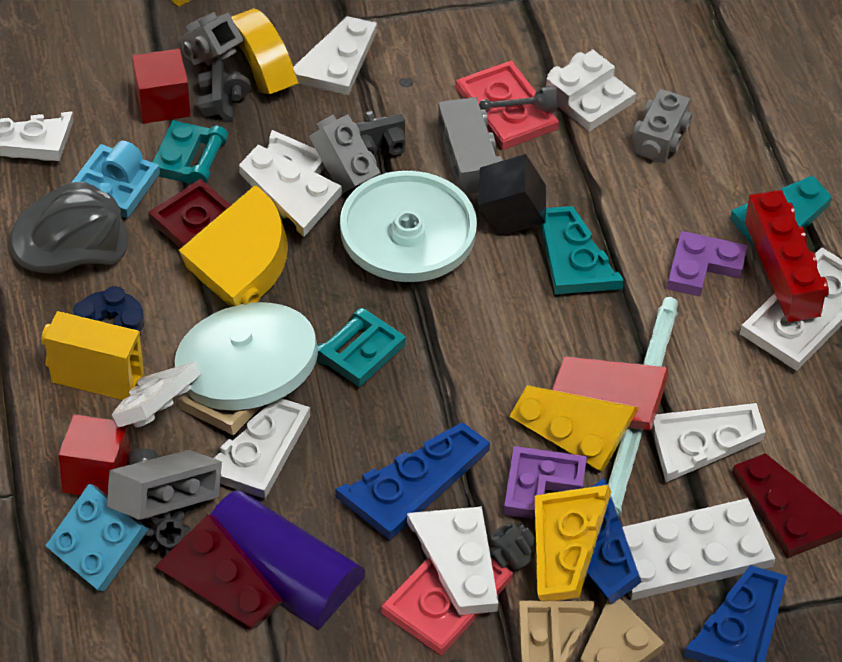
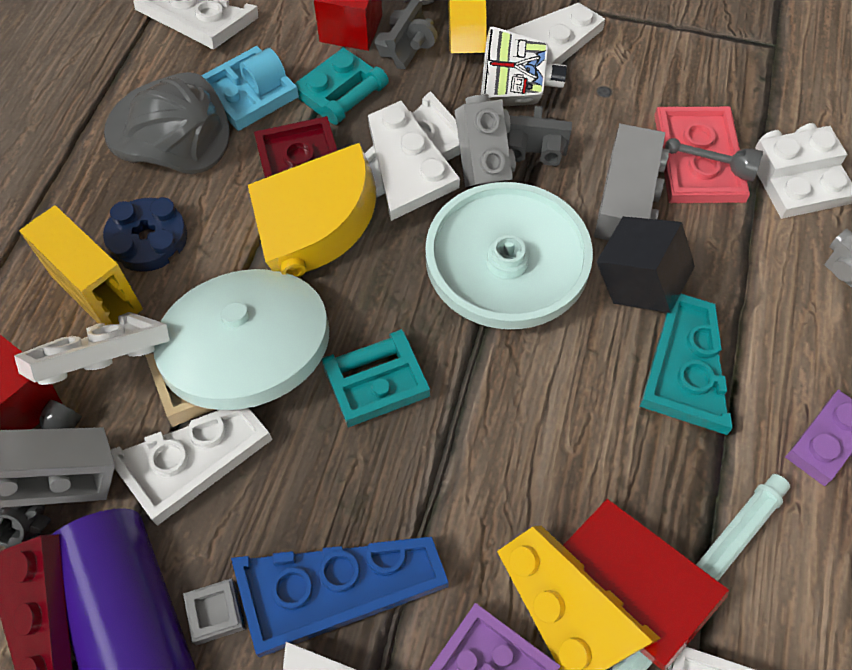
camera: 30 degrees right, 10 degrees up
(333, 88) = (518, 68): none -> torso
(341, 529) = (213, 611): none -> light grey tile

